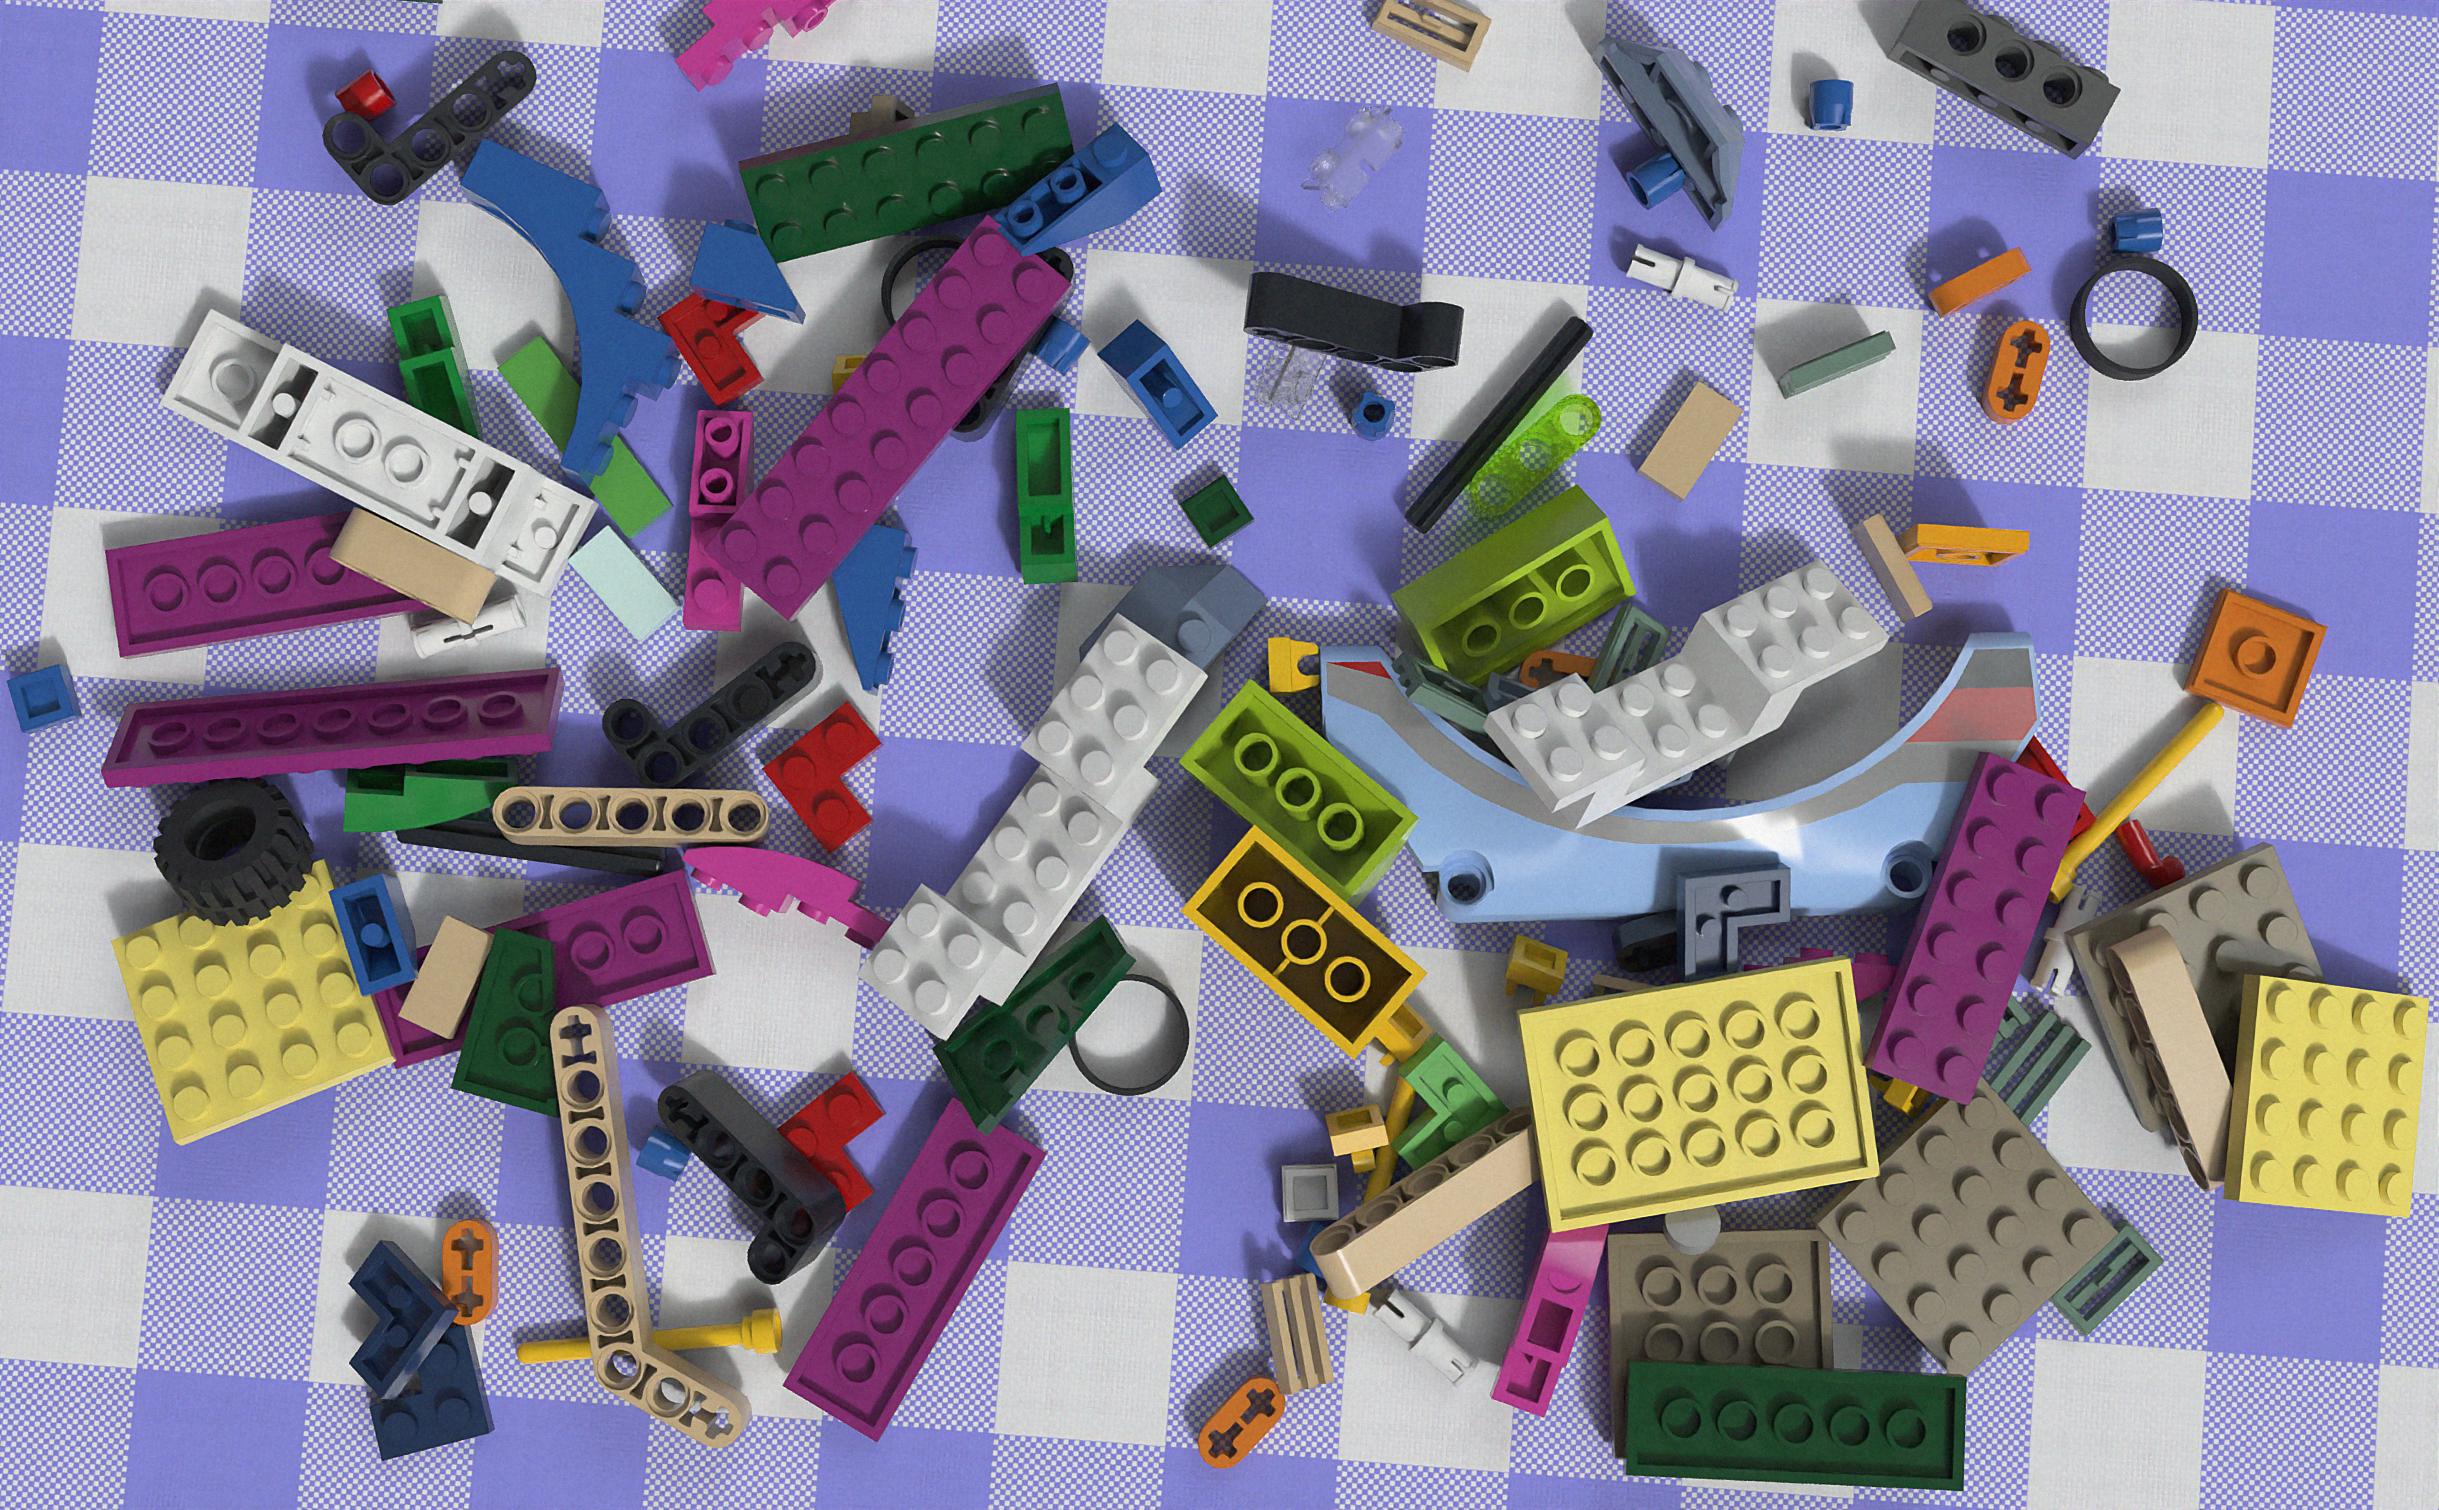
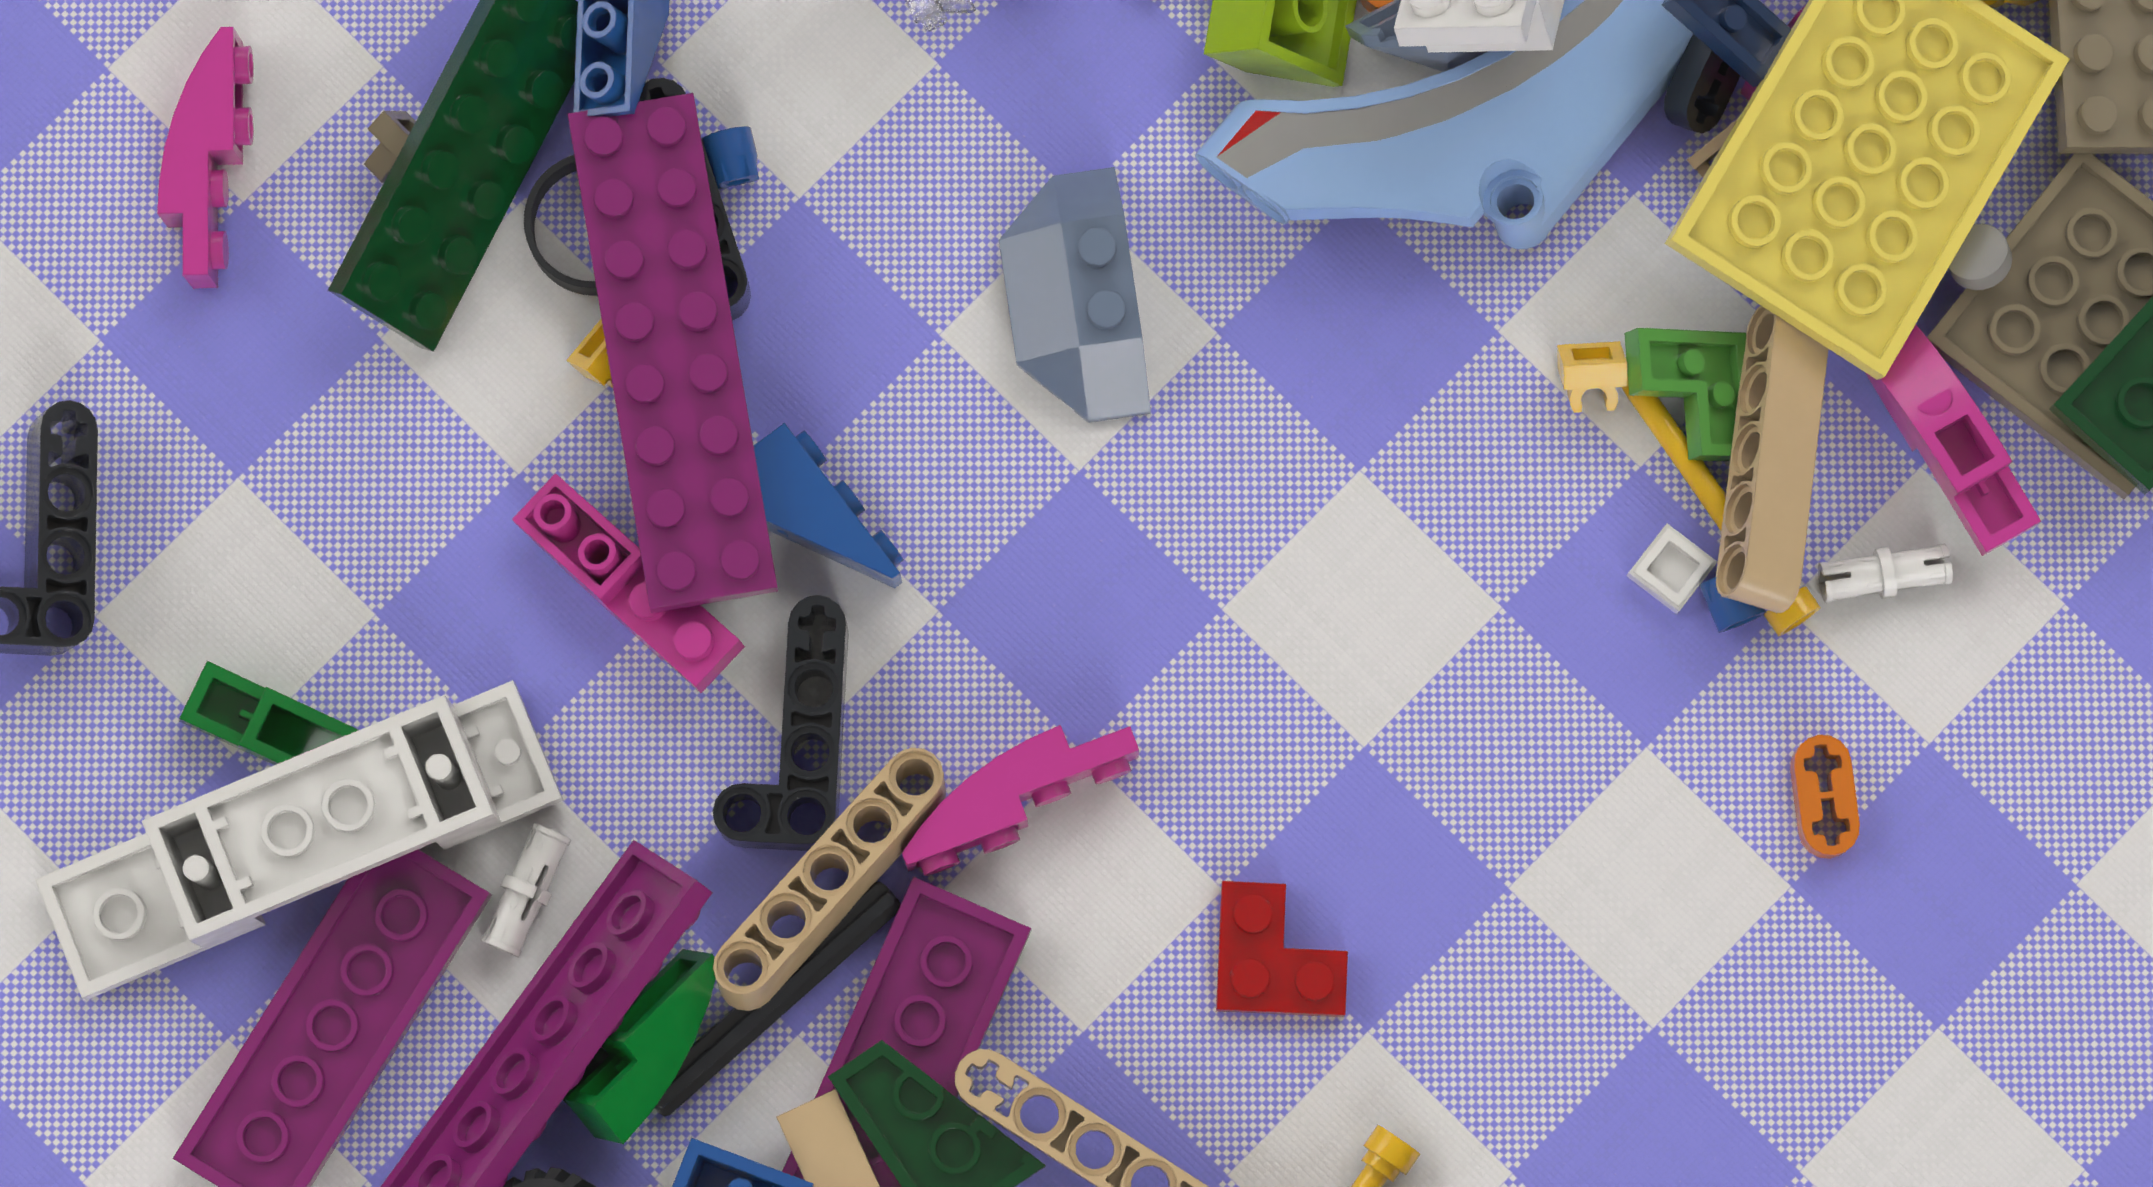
camera: 50 degrees left, 5 degrees down
(412, 566) = (435, 884): tan beam -> none
(553, 400) = (444, 645): bright green tile -> none
(617, 354) = (230, 504): blue arch -> none
(624, 583) = (607, 720): light aqua tile -> none
(664, 1154) = (1155, 1109): blue hose -> none
(707, 341) = (443, 455): red plate -> none
(741, 272) = (431, 370): blue slope -> none
(760, 1169) = (1234, 1041): black beam -> none
(812, 775) = (927, 699): red plate -> none
(914, 1271) = (1447, 969): magenta plate -> none
(1010, 1045) = (1316, 690): dark green wing -> none
(1046, 496) = (855, 280): green slope -> none
(1047, 841) = (1163, 523): white bracket -> none
(1151, 1087) = (1424, 549): black tyre -> none
(1157, 383) = (839, 99): blue slope -> none
(1216, 512) = (997, 147): dark green tile -> none
(1283, 666) = (1185, 200): yellow tile -> none
(1300, 793) = (1316, 273): lime slope -> none
(1304, 942) = (1450, 375): yellow brick -> none
(1304, 1331) = (1787, 680): tan tile -> none
(1357, 1133) = (1656, 481): yellow tile -> none
(1442, 692) = (1333, 77): sand green tile -> none
(1535, 966) = (1637, 204): yellow tile -> none

